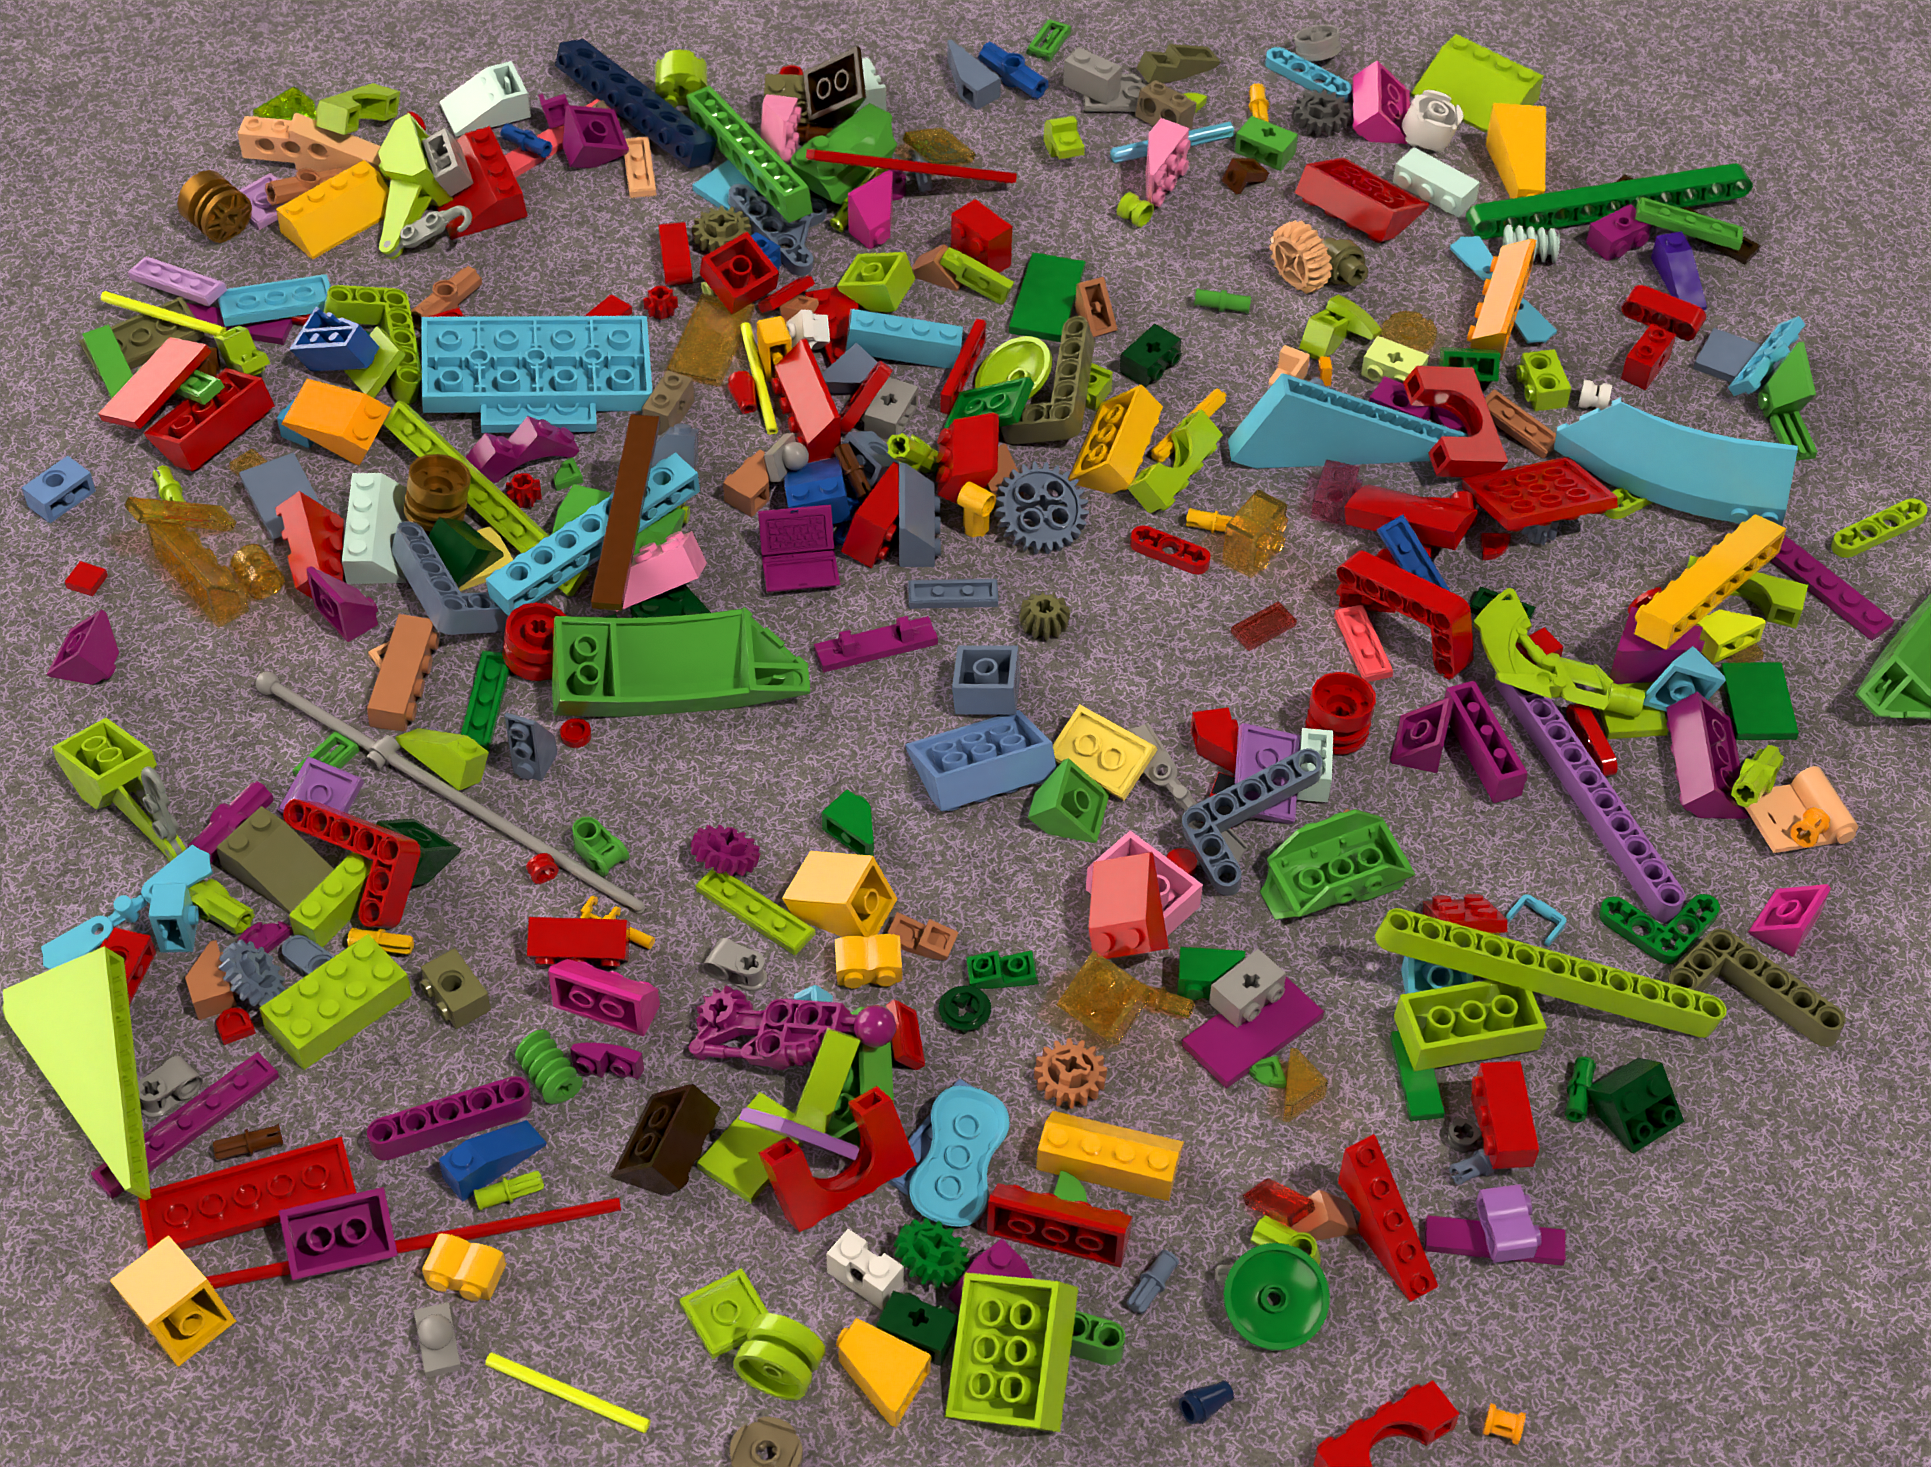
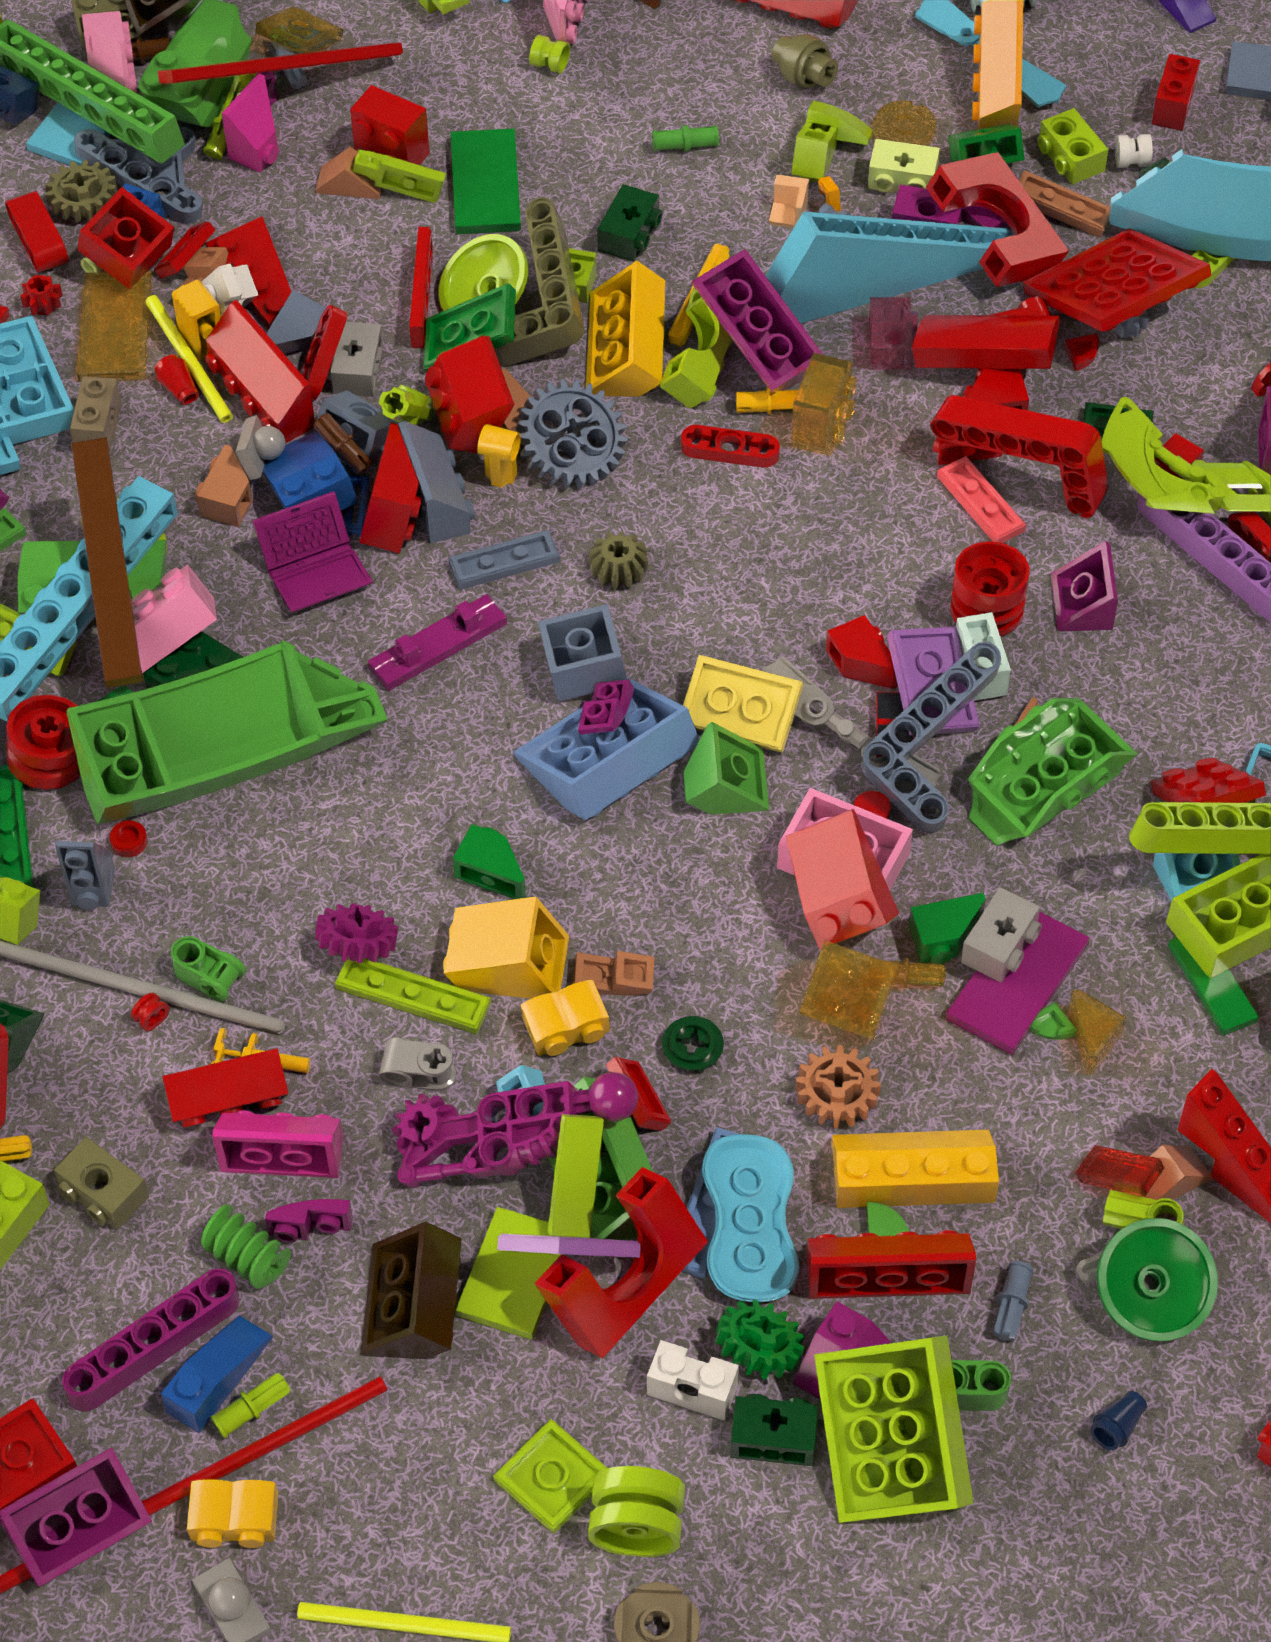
camera: 15 degrees left, 5 degrees up
(678, 439) = (129, 461): sand blue slope -> none
(878, 280) = (287, 208): lime slope -> none
(883, 1367) = (751, 1488): yellow slope -> none
(905, 338) = (343, 270): medium azure slope -> none
(989, 727) = (607, 707): none -> magenta slope
(993, 971) = (714, 990): green slope -> none
(1095, 306) = (545, 178): nougat slope -> none
(1221, 452) = (758, 320): none -> magenta slope
(1263, 626) = (864, 508): clear red tile -> none
(1301, 256) = (758, 66): light nougat gear -> none
(1409, 551) = (1002, 383): blue tile -> none
(1485, 743) = (1158, 582): magenta brick -> none
(1665, 311) = (1173, 34): red beam -> none

